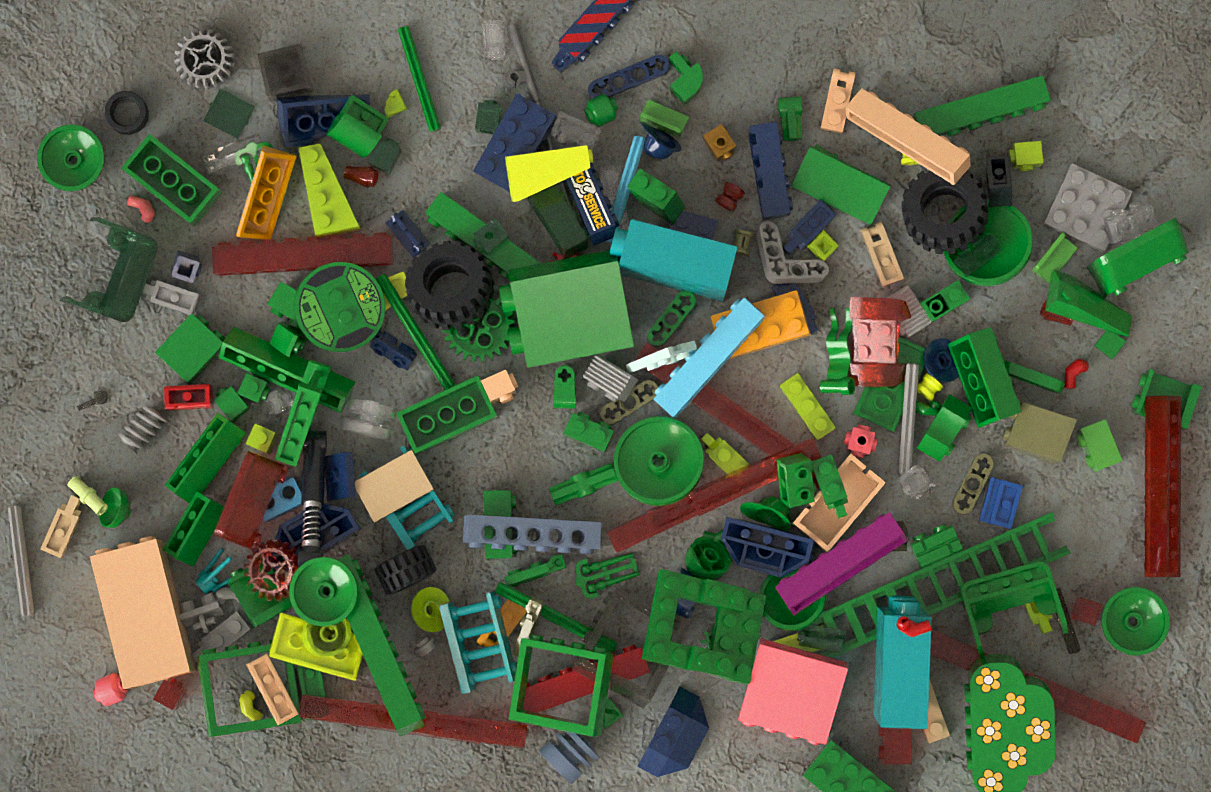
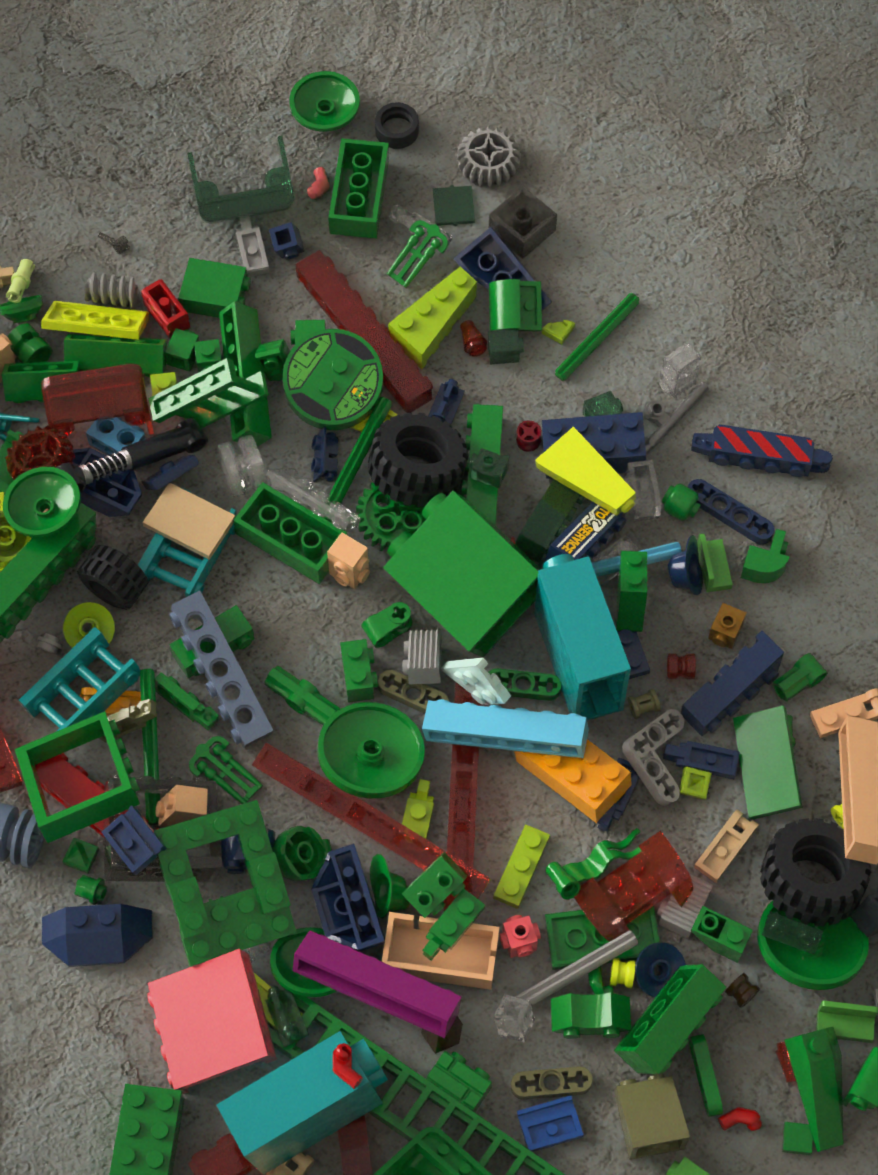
camera: 55 degrees right, 20 degrees down
(162, 518) = (29, 345): none -> green wheel
(163, 457) = (95, 320): none -> neon yellow tile
(266, 194) = (397, 263): light orange slope -> none
(414, 388) = (285, 480): none -> clear wing
(472, 181) = (528, 429): none -> dark red wheel
(622, 622) = (181, 804): none -> light nougat brick
(639, 720) = (91, 889): none -> green hose
(644, 674) = (134, 840): none -> dark blue plate
(990, 313) = (742, 990): none -> dark brown wheel

